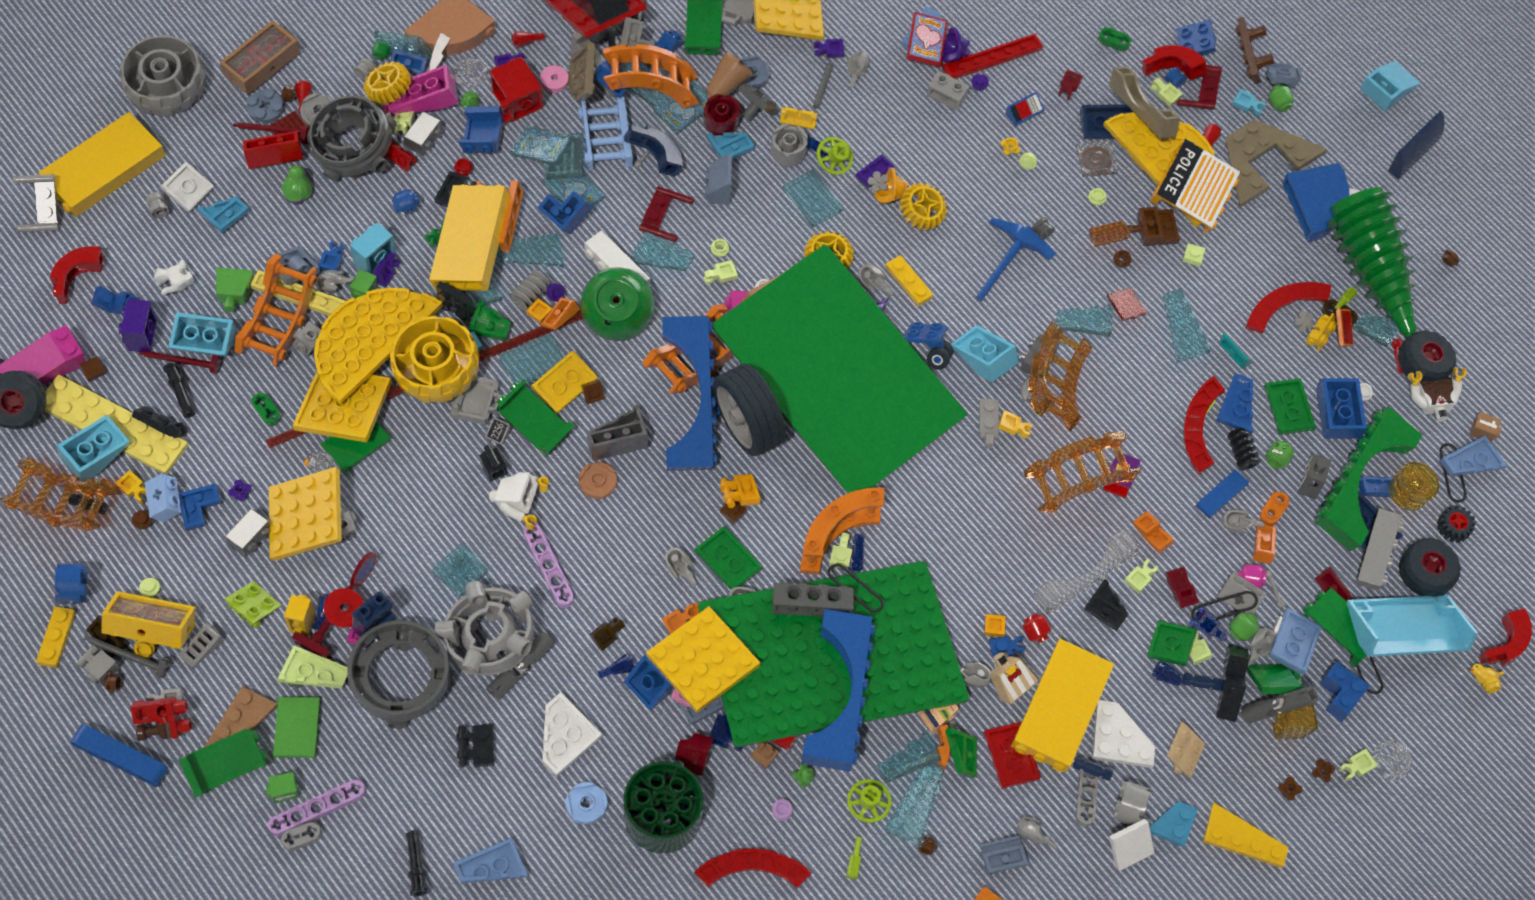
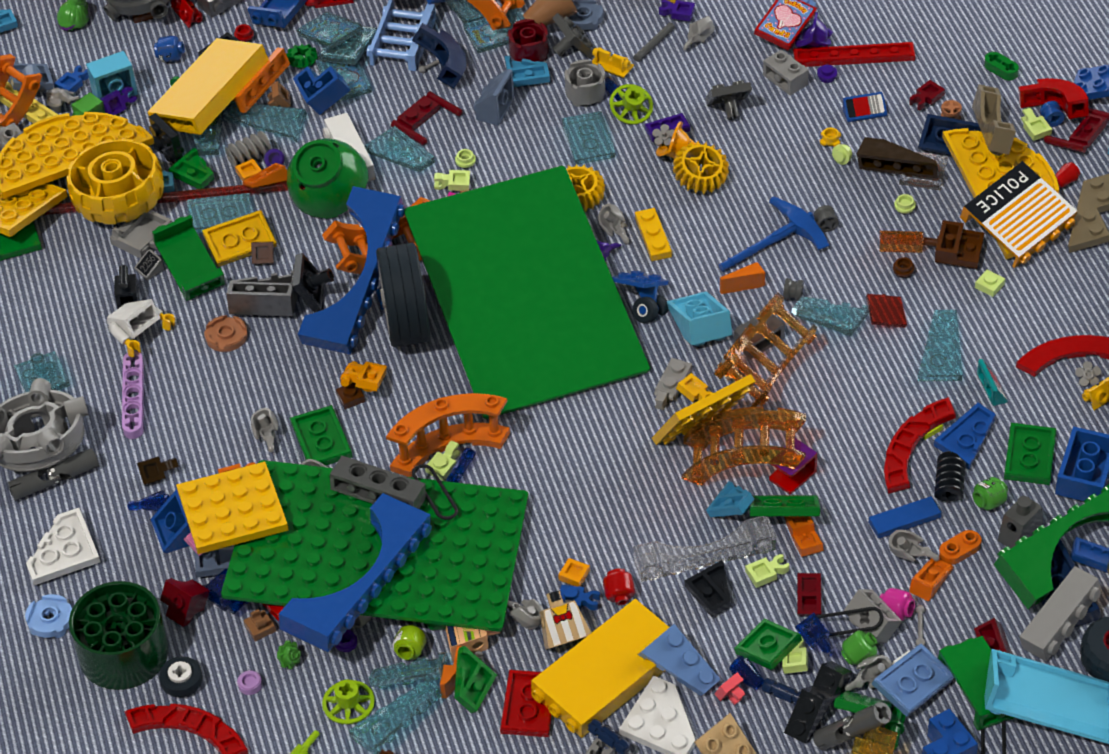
camera: 30 degrees right, 15 degrees down
(527, 183) = (300, 61): none -> green gear
(530, 226) = (279, 96): none -> medium nougat tile
(653, 412) = (310, 282): none -> black plate
(726, 831) = (189, 679): none -> black wheel
(896, 733) = (409, 642): none -> lime head
(915, 129) = (729, 95): none -> dark grey plate
(1005, 305) = (743, 279): none -> orange slope
(1040, 449) = (703, 410): none -> yellow plate
(1047, 305) = (793, 289): none -> dark grey wheel
(1070, 156) = (891, 158): none -> dark brown slope
(1089, 522) = (730, 501): none -> dark azure wing
(1099, 95) = (951, 109): none -> nougat wheel
(1117, 682) = (678, 657): none -> medium blue wing
(1132, 514) = (785, 505): none -> green tile
(1162, 693) = (731, 689): none -> coral tile

